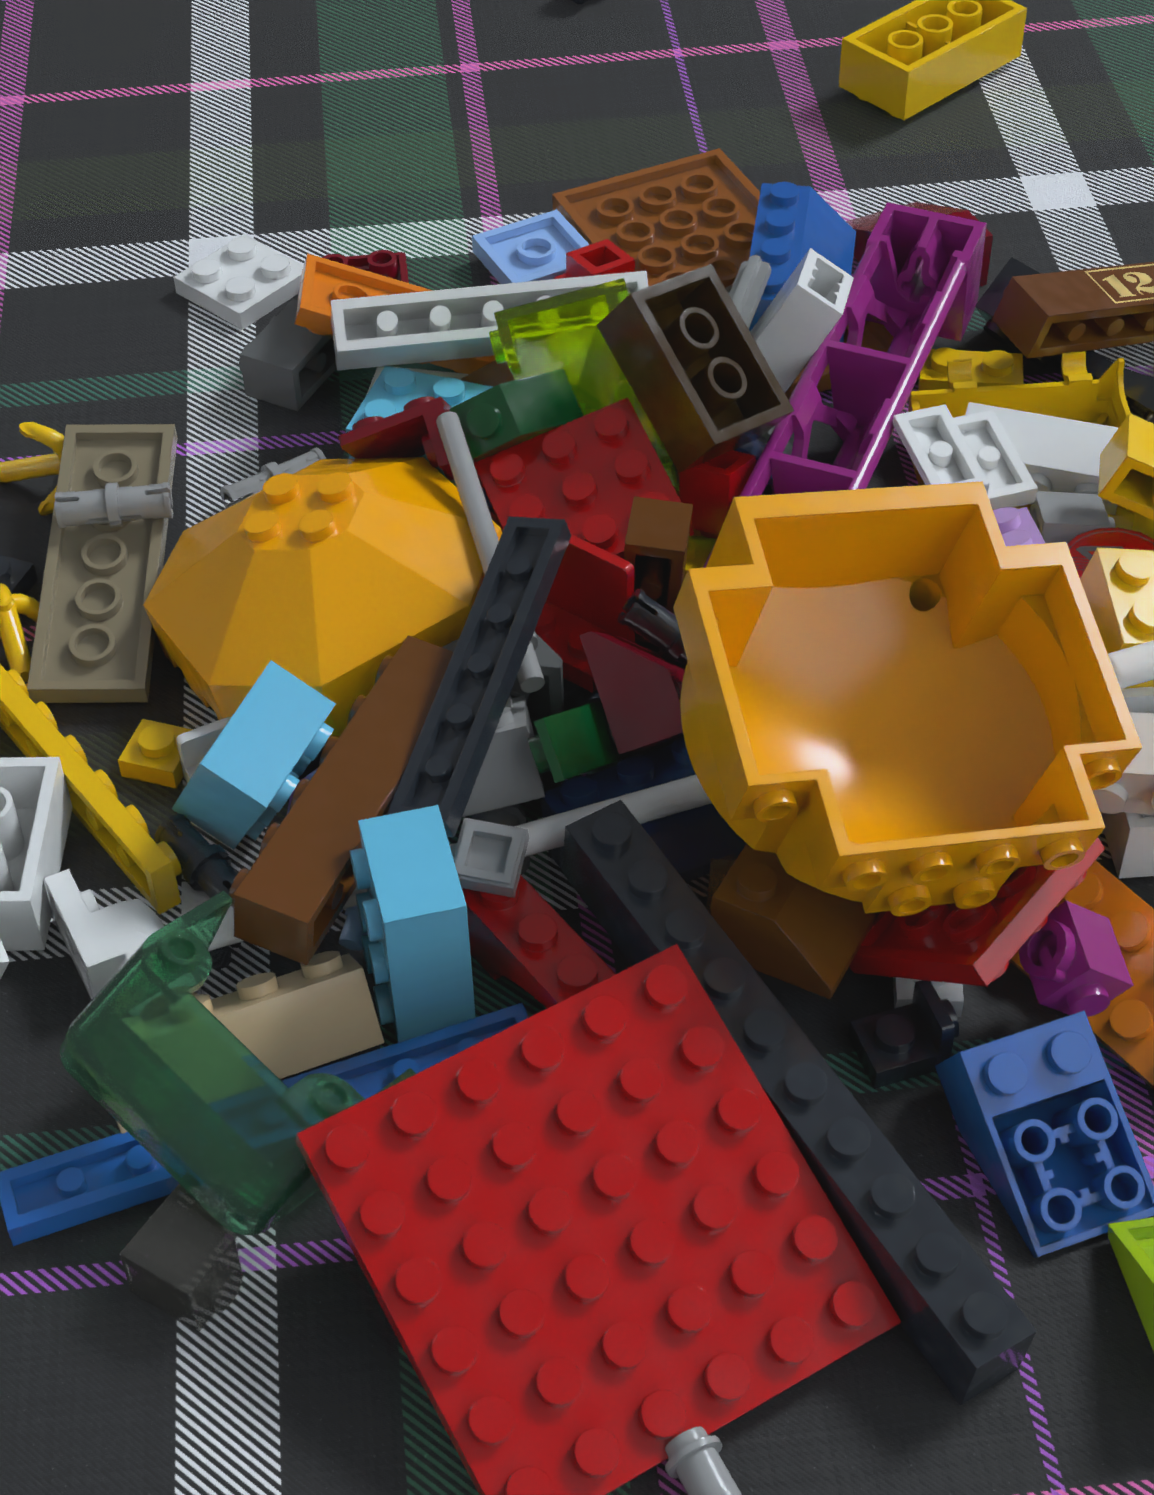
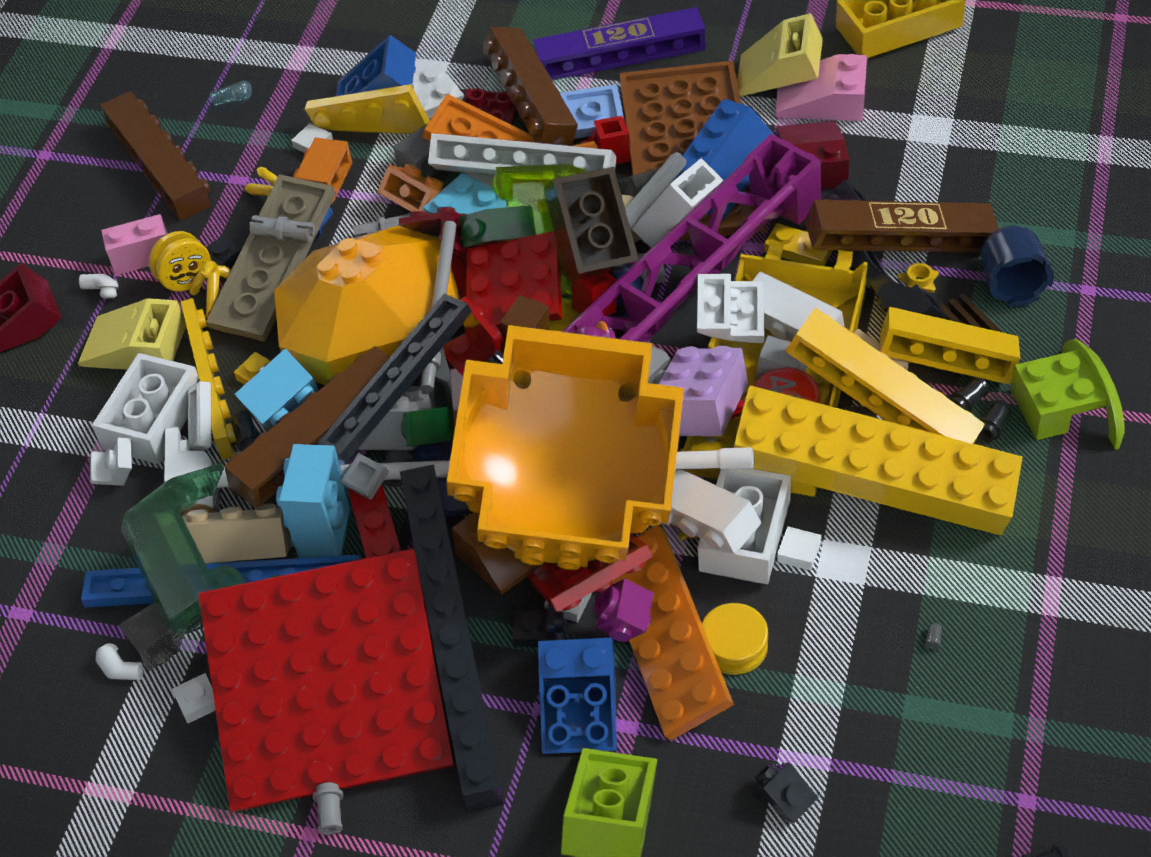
camera: 25 degrees right, 5 degrees up
(77, 381) = (307, 135): none -> white tile
(100, 841) = (199, 416): none -> white tile
(126, 394) = (326, 163): none -> orange brick
(130, 1340) = (114, 667): none -> white arm
(155, 271) = (384, 67): none -> blue slope
(175, 314) = (370, 111): none -> yellow wing
(302, 412) = (408, 187): none -> orange brick
(327, 1352) = (195, 698): none -> white plate
(415, 227) = (529, 86): none -> reddish brown brick
(525, 159) = (621, 43): none -> dark purple brick
(800, 123) = (782, 57): none -> light yellow slope
(889, 157) = (833, 96): none -> bright pink slope

